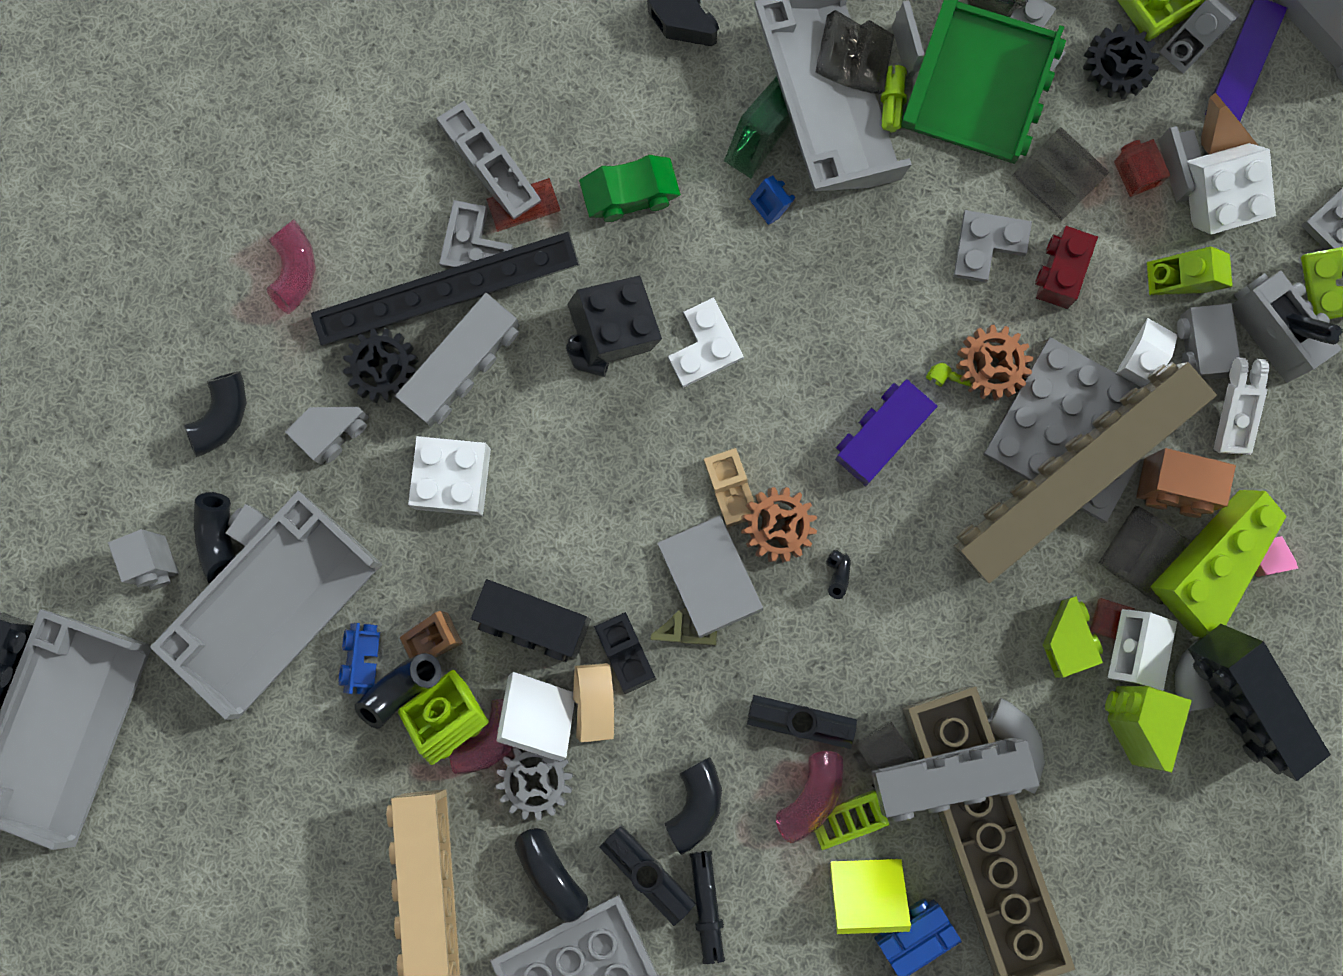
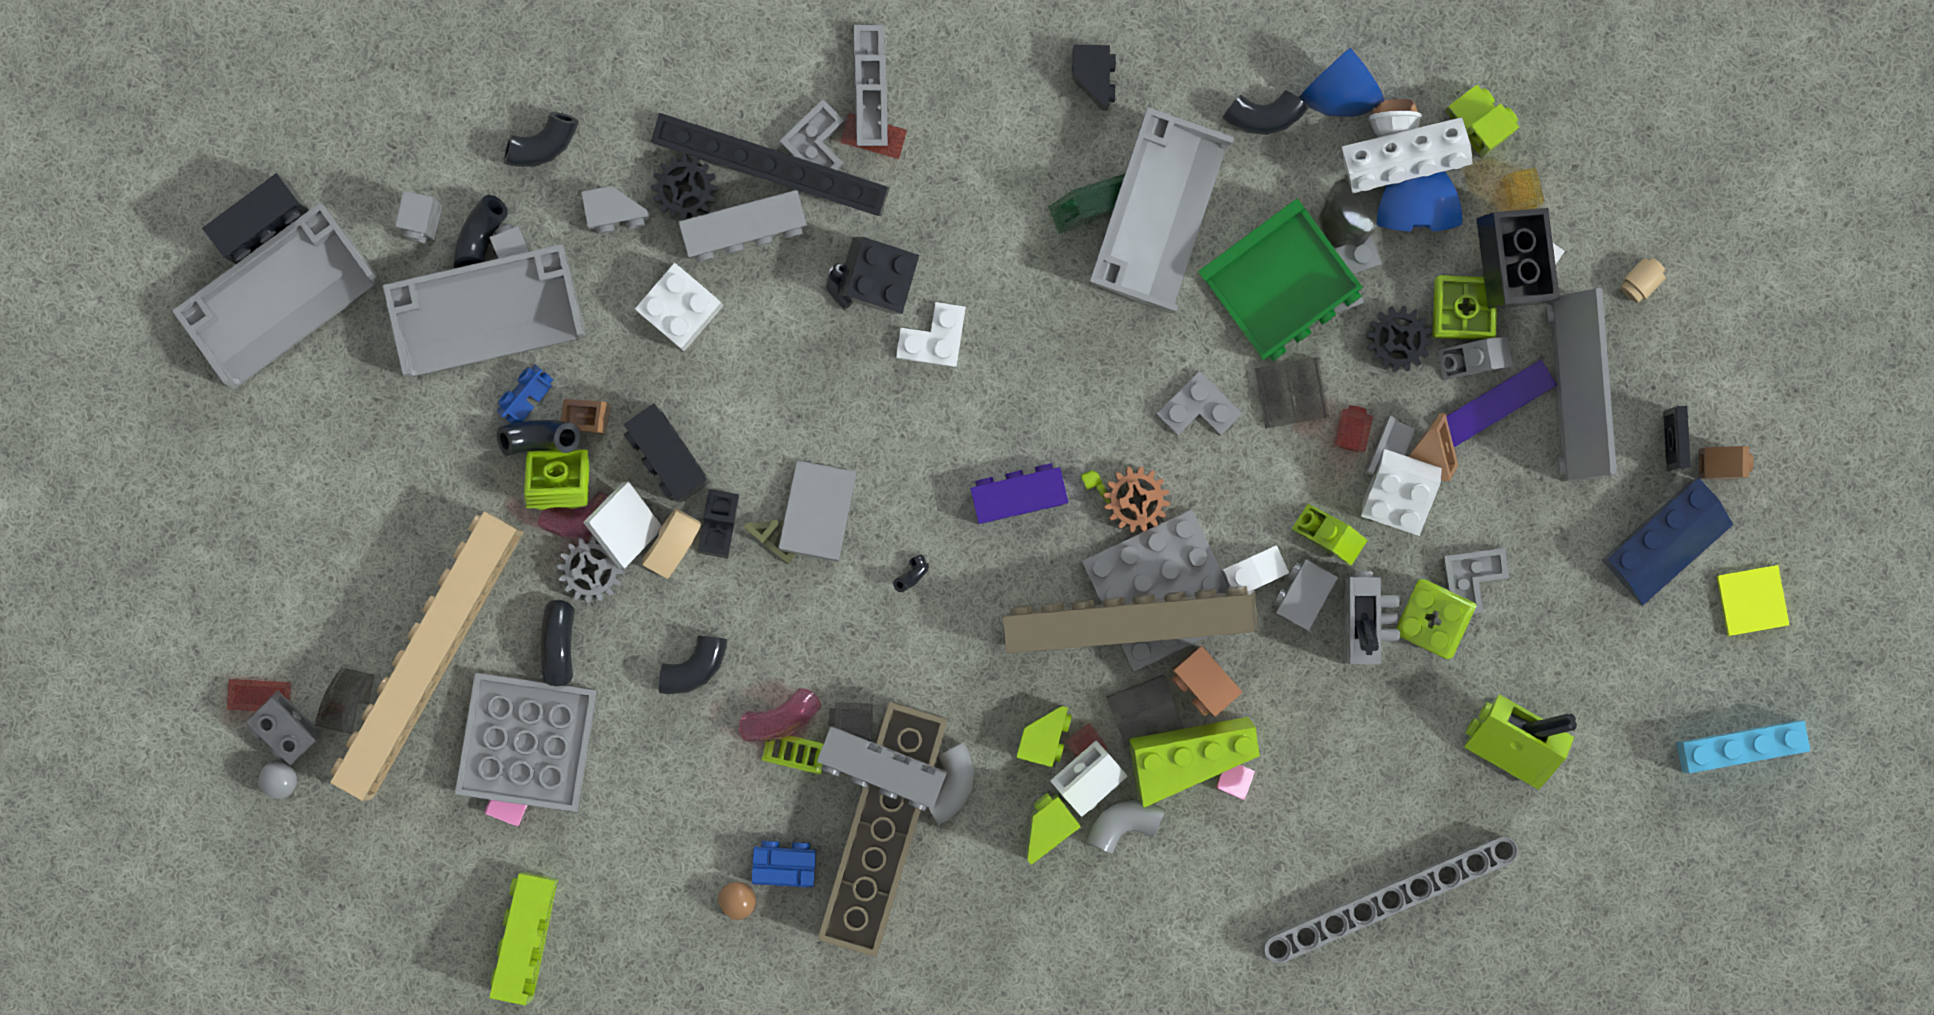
camera: 30 degrees right, 5 degrees up
(296, 270) = (672, 69): clear pink cylinder -> none
(629, 188) = (960, 180): green brick -> none
(662, 893) = (629, 711): black piece -> none
(707, 907) = (652, 742): black pin -> none
(729, 485) = (879, 457): tan slope -> none
(771, 199) = (1060, 262): blue tile -> none
(771, 513) = (893, 494): nougat gear -> none
(824, 726) = (824, 675): black piece -> none
(855, 53) = (1202, 194): clear smoke slope -> none
(869, 896) = (771, 813): neon yellow tile -> none
(894, 98) = (1207, 248): lime axle -> none
(908, 39) = (1247, 212): light grey piece -> none
(1066, 267) = (1240, 466): dark red brick -> none
(1242, 407) = (1288, 659): white hinge -> none
(1258, 702) = (1135, 866): black brick -> none

